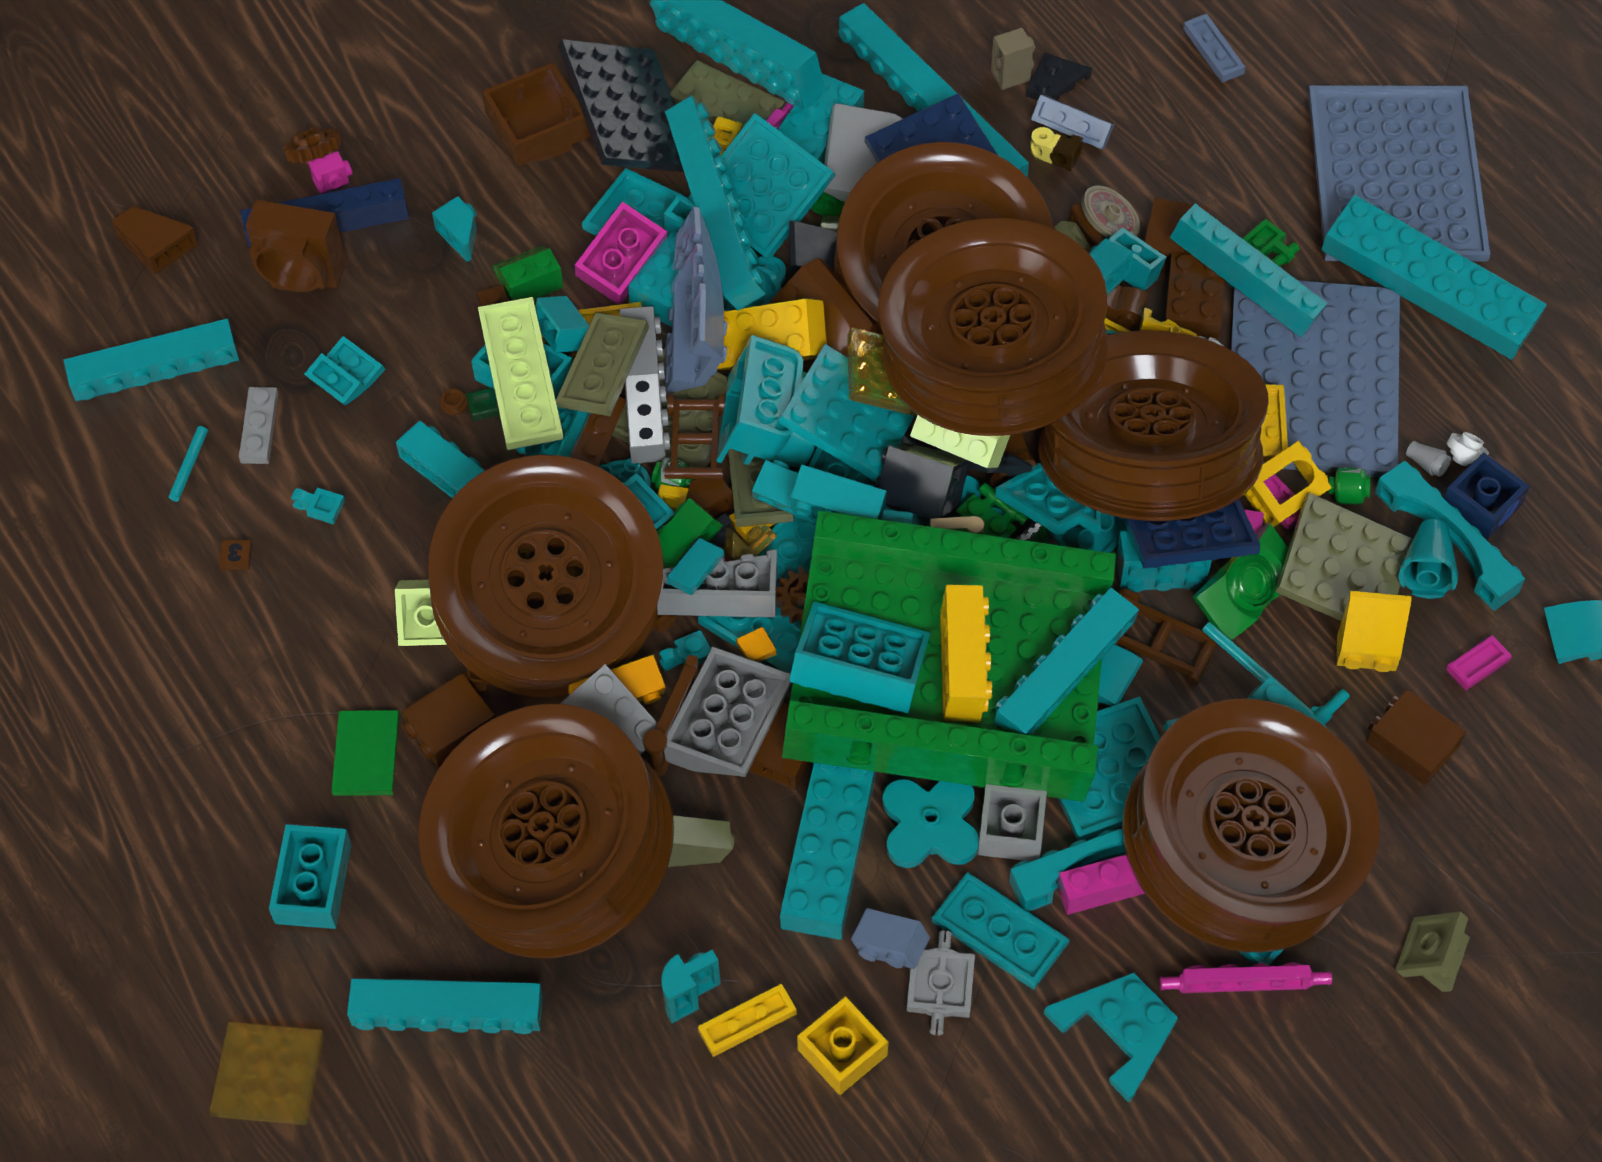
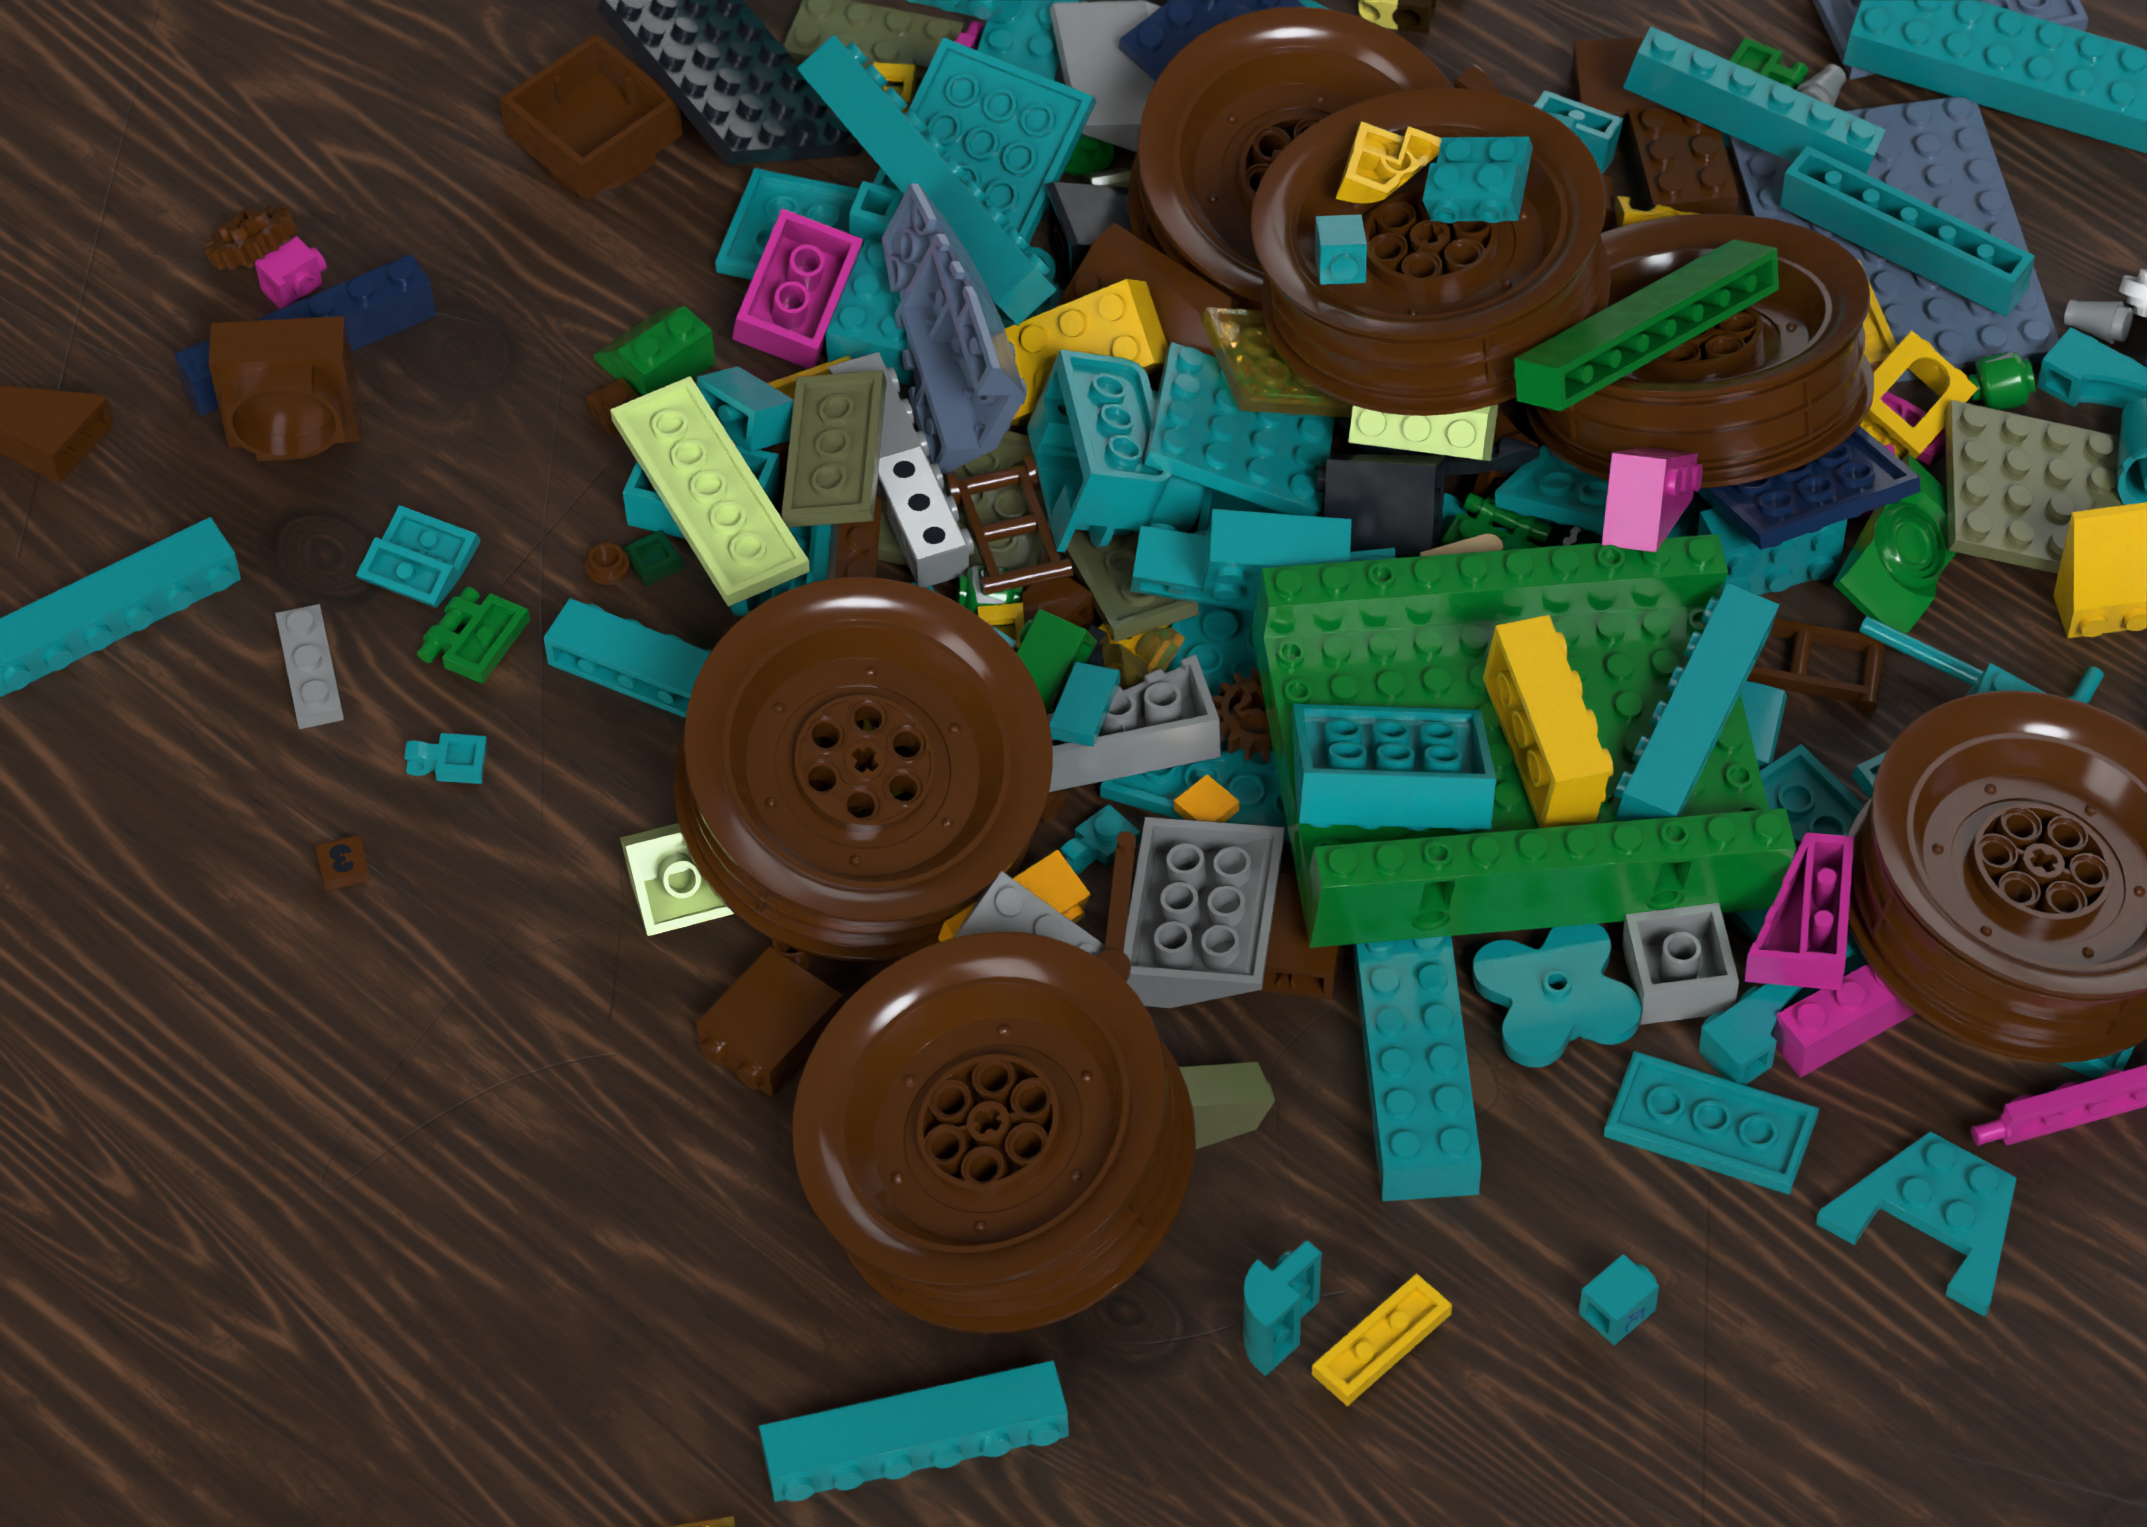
camera: 15 degrees left, 5 degrees down
(188, 463) = (217, 747): teal bar -> none
(310, 876) = (638, 1296): teal brick -> none
(364, 433) = (482, 641): none -> green plate
(365, 753) = (654, 1102): green tile -> none
(457, 226) = (519, 308): teal slope -> none
(842, 1045) = (1541, 1336): yellow brick -> none
(890, 939) = (1558, 1168): sand blue brick -> none
(903, 1032) = (1619, 1299): none -> teal brick
(926, 316) = (1340, 249): none -> teal brick
(941, 984) = (1652, 1214): light grey plate -> none
(978, 262) = (1384, 162): none -> yellow slope
(1030, 288) = (1478, 179): none -> teal plate
(1078, 517) = (1648, 495): none -> wedge
(1095, 818) = (1808, 923): none -> dark pink wedge
(1109, 211) = (1510, 72): dark tan shield -> none
(1114, 405) = (1646, 325): none -> green brick
(1303, 264) = (1825, 85): none -> light grey cone
(1320, 373) = (1907, 231): none -> teal brick

